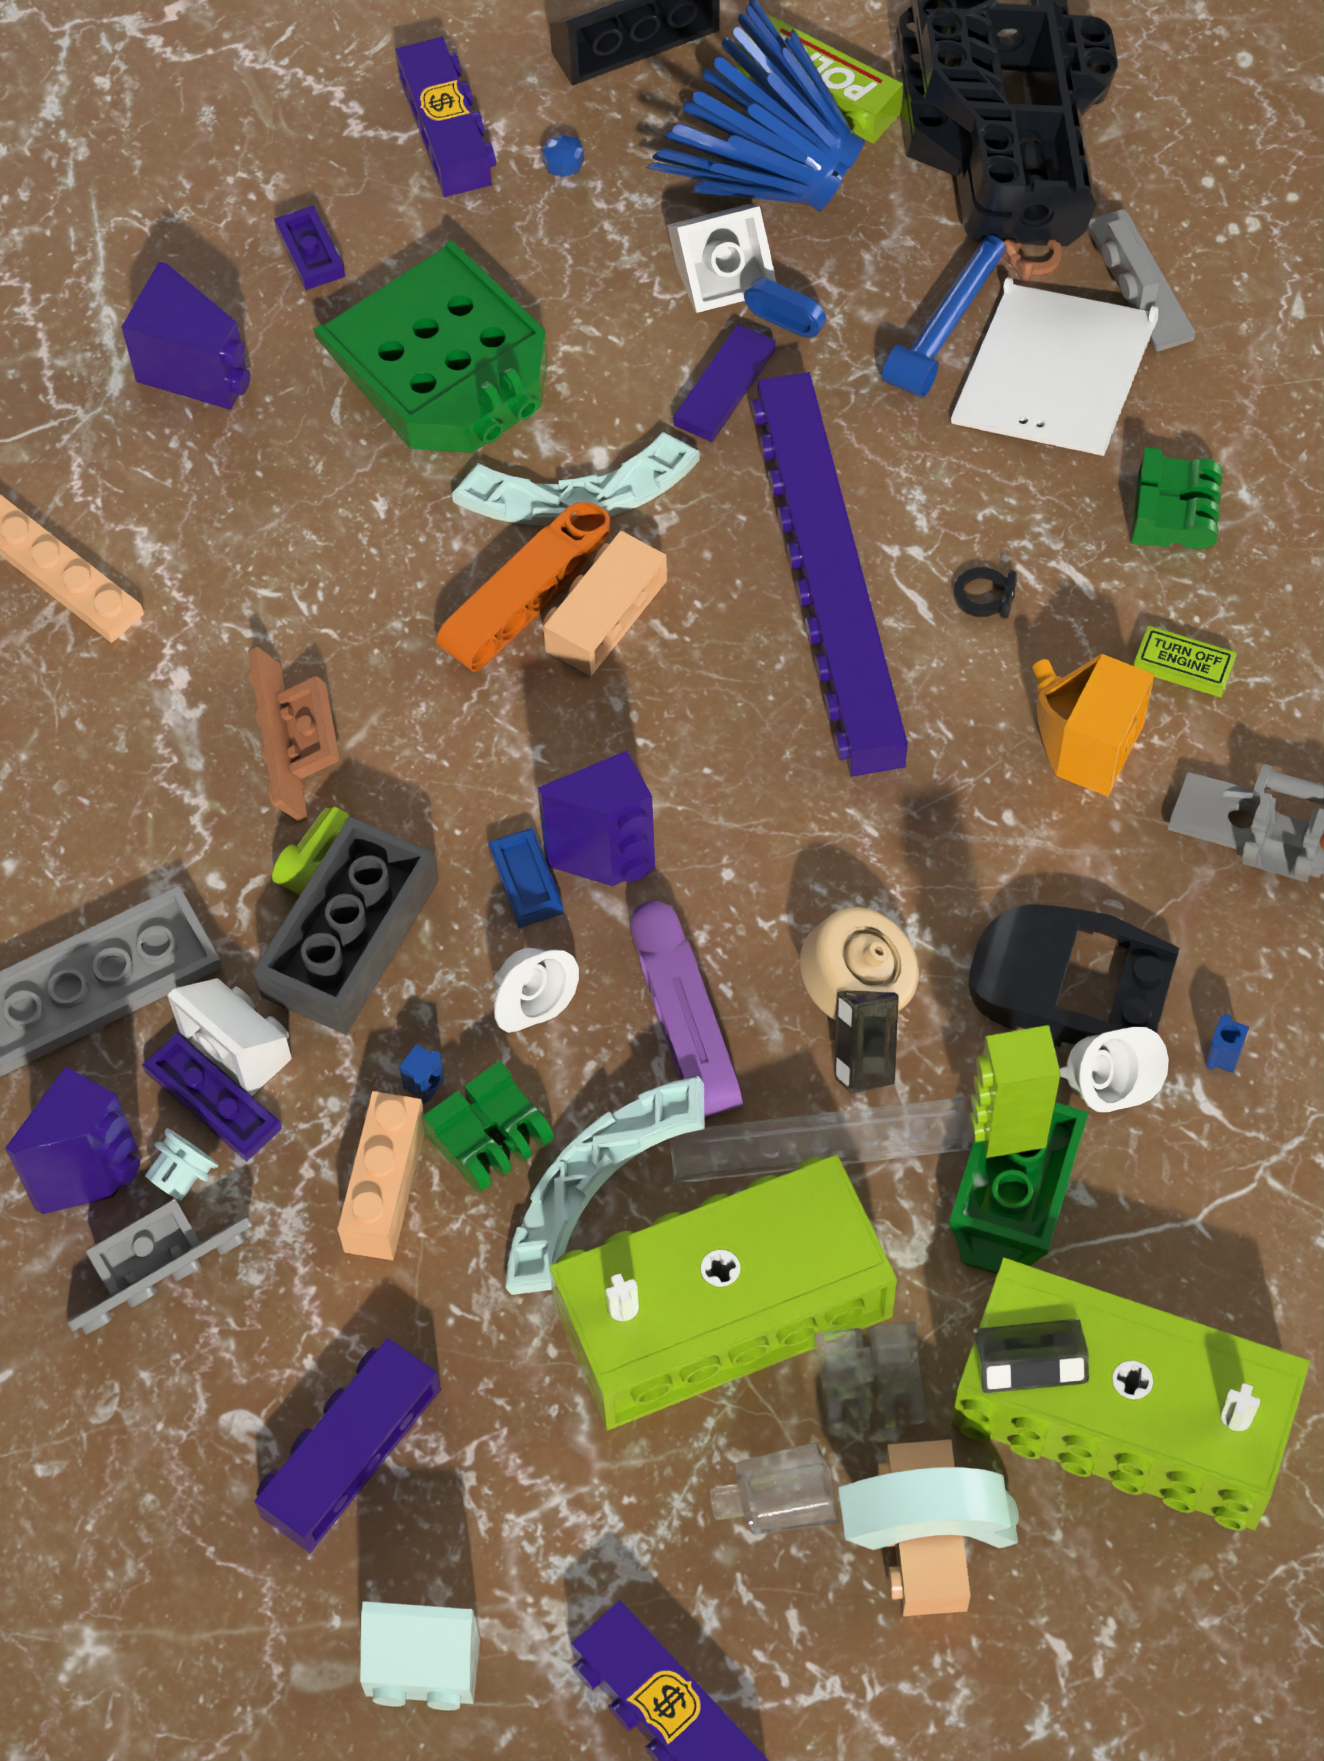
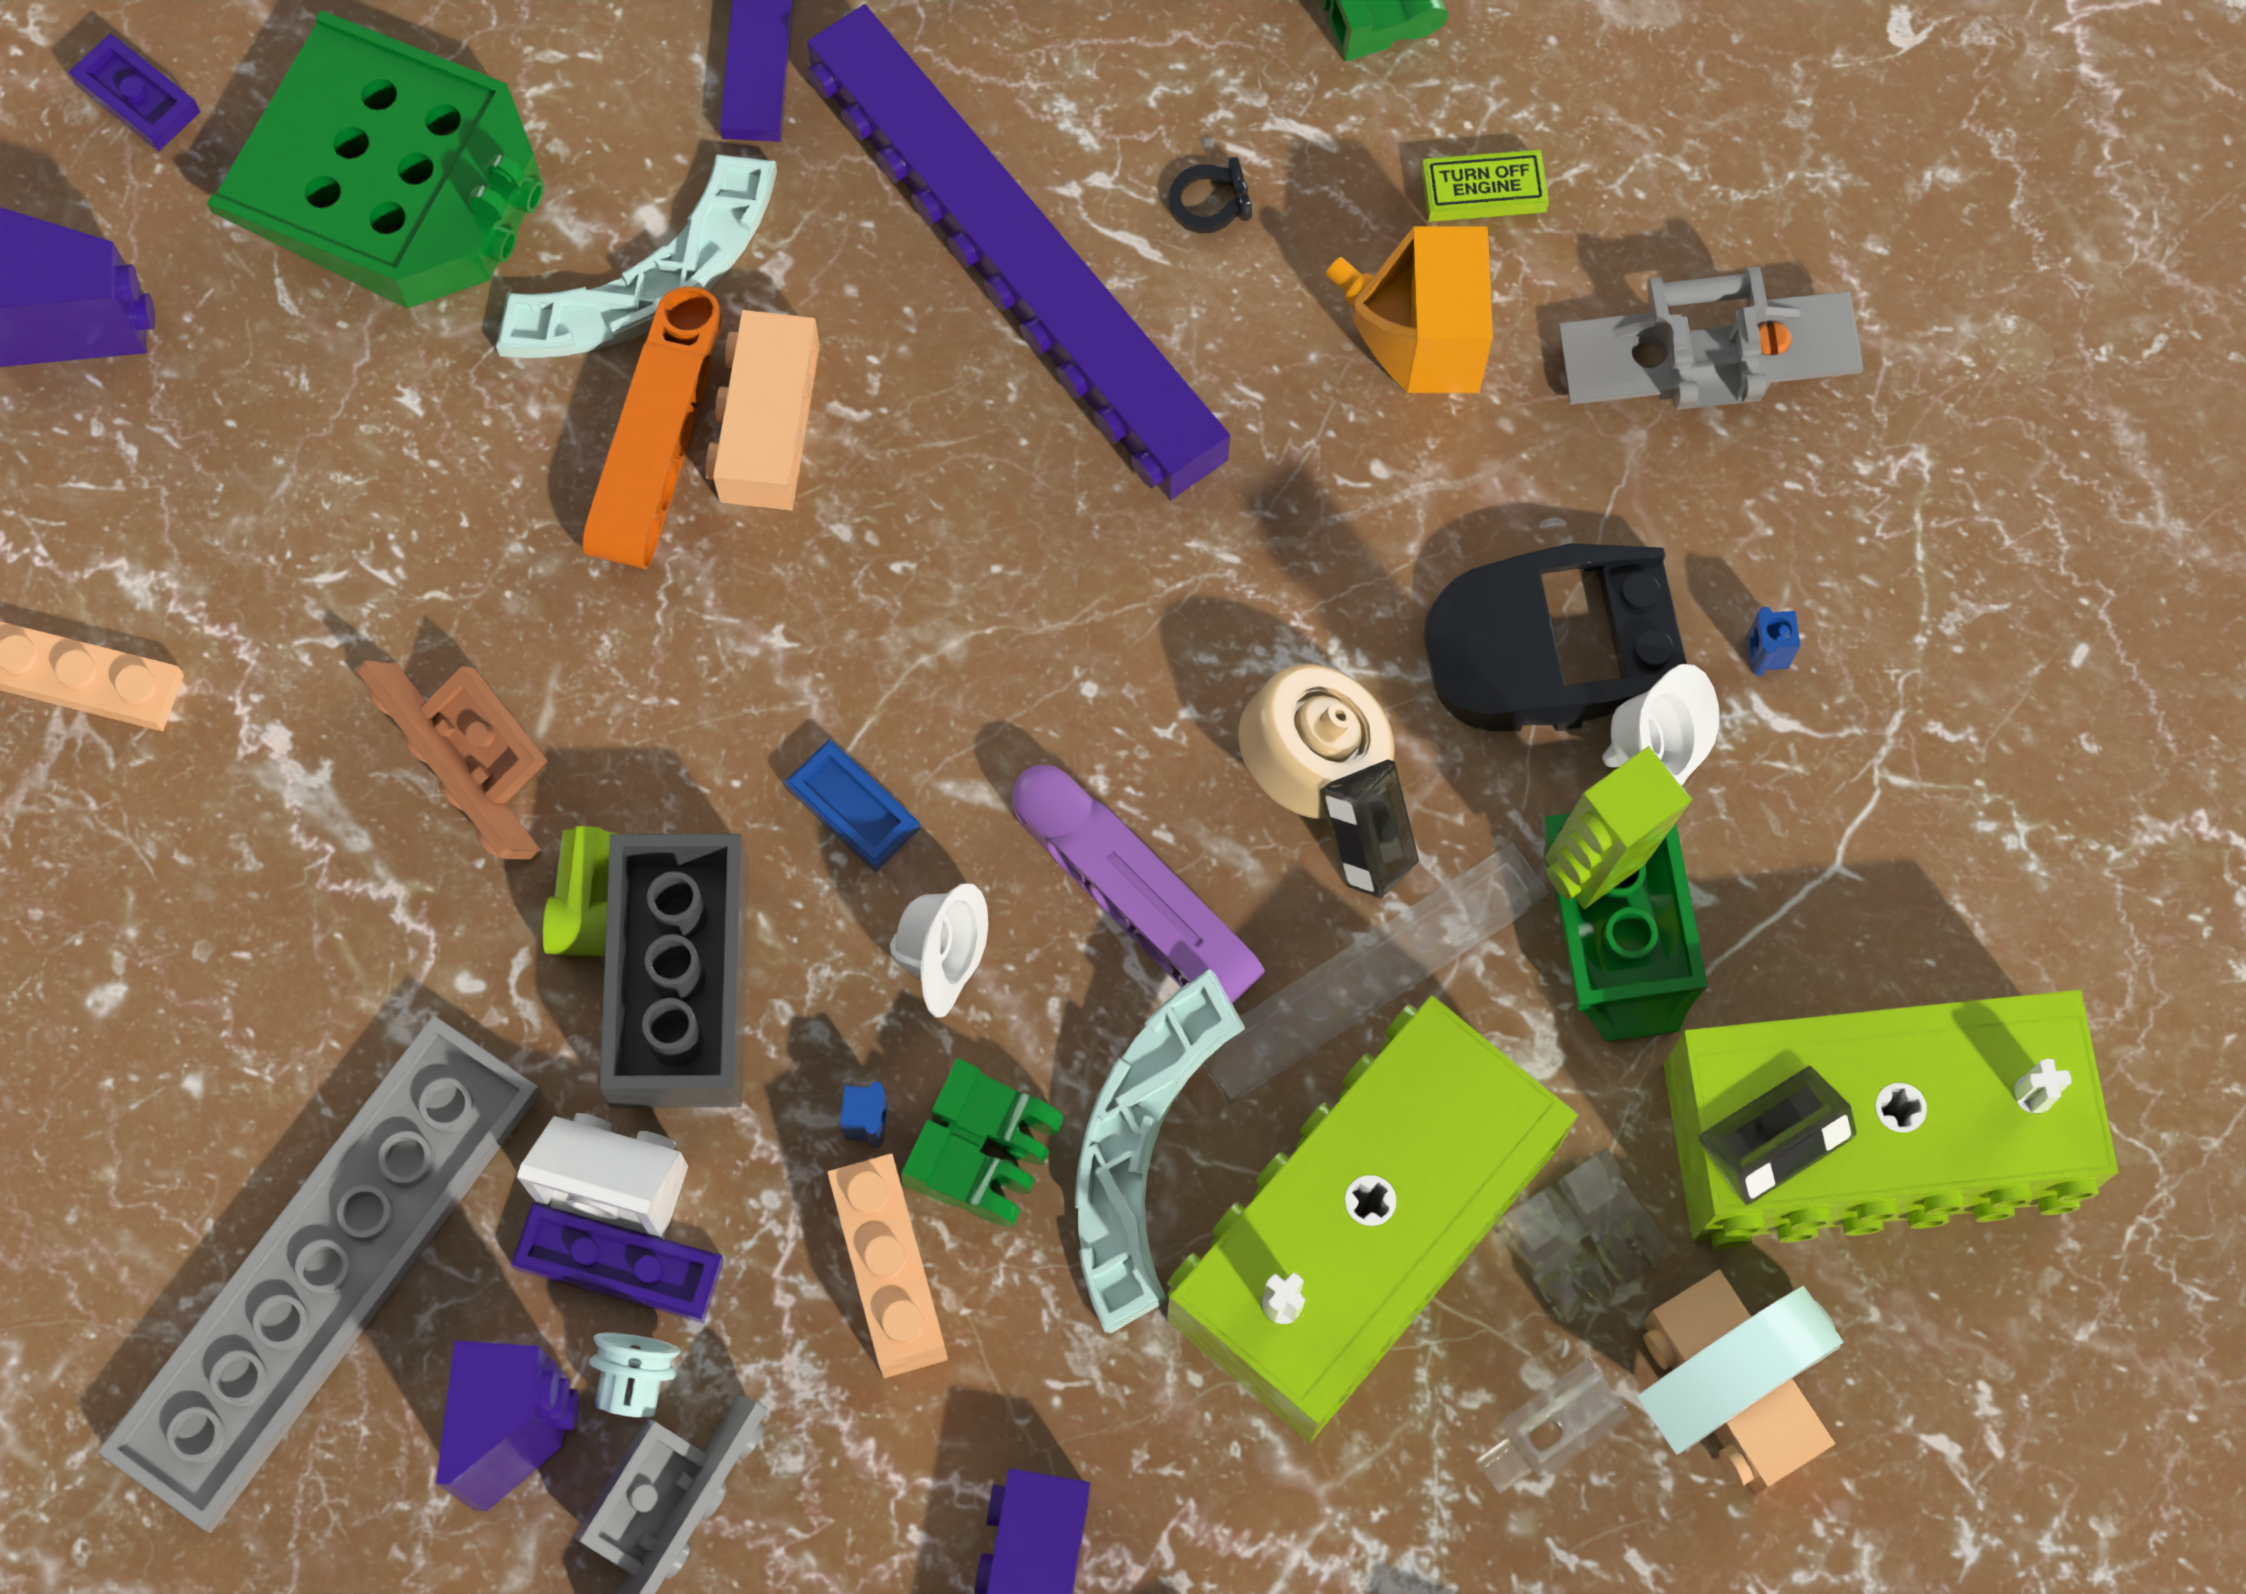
camera: 30 degrees left, 10 degrees up
(599, 822) = (927, 702): dark purple slope -> none

